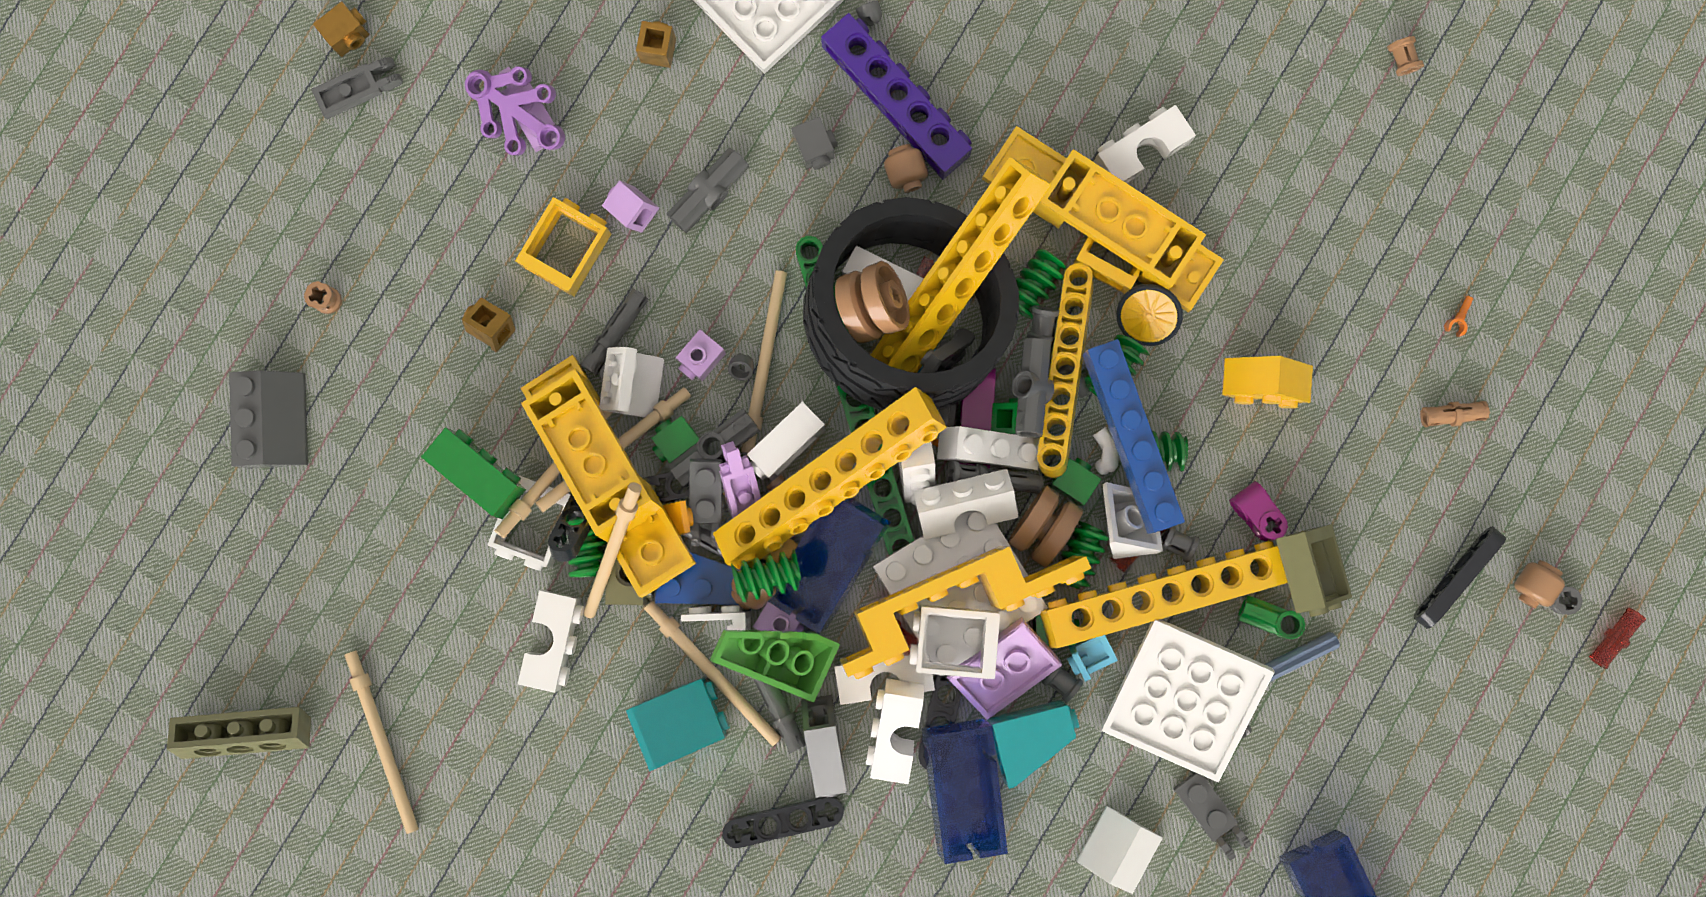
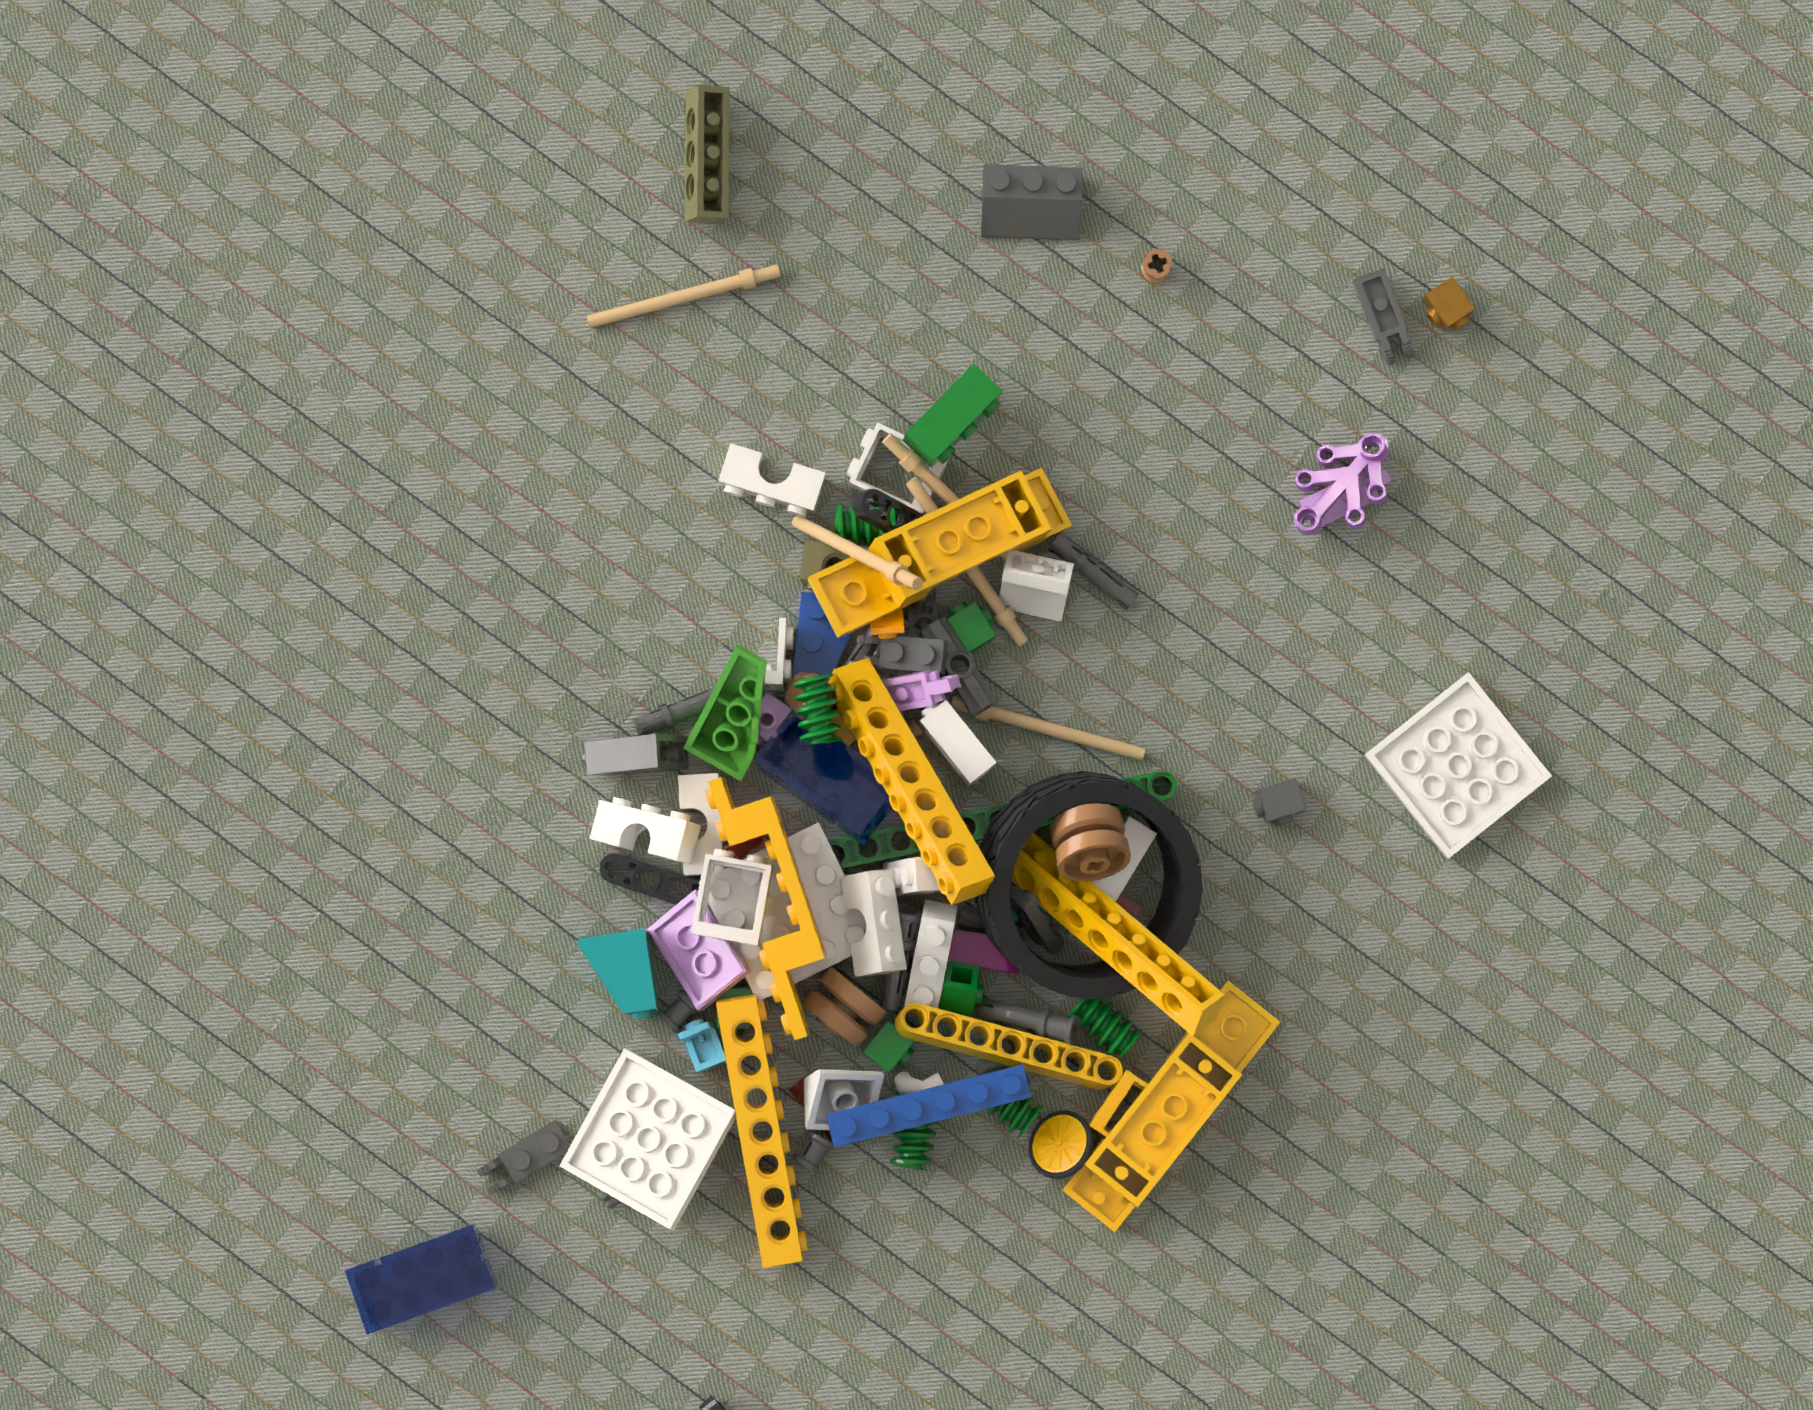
camera: 90 degrees right, 0 degrees up
(488, 324) = (1124, 434): pearl gold brick -> none
(541, 232) = (1229, 535): yellow window -> none
(630, 206) = (1226, 598): lavender brick -> none
(656, 44) = (1402, 641): pearl gold brick -> none
(670, 628) = (773, 605): tan bar -> none
(678, 722) = (675, 606): teal slope -> none
(700, 356) = (1058, 659): lavender brick -> none
(708, 190) = (1238, 683): dark grey piece -> none
(740, 374) = (1037, 700): dark grey hinge -> none
(782, 818) = (564, 706): black beam -> none
(853, 32) = (1387, 838): dark purple brick -> none
(870, 13) = (1420, 875): dark grey hinge -> none
(905, 168) = (1243, 898): medium nougat head -> none
(964, 790) = (578, 896): clear blue piece -> none
(1033, 387) = (990, 1006): dark grey piece -> none
(1085, 545) = (812, 1047): green piece -> none
(1119, 850) = (498, 1056): white slope -> none
(1165, 132) = (1262, 1183): white arch -> none
(1257, 509) = (843, 1236): magenta piece -> none
(1267, 378) = (977, 1263): yellow brick -> none
(1269, 617) = (727, 1236): green piece -> none
(1303, 654) = (681, 1268): sand blue axle -> none
(1314, 570) = (775, 1305): olive window -> none

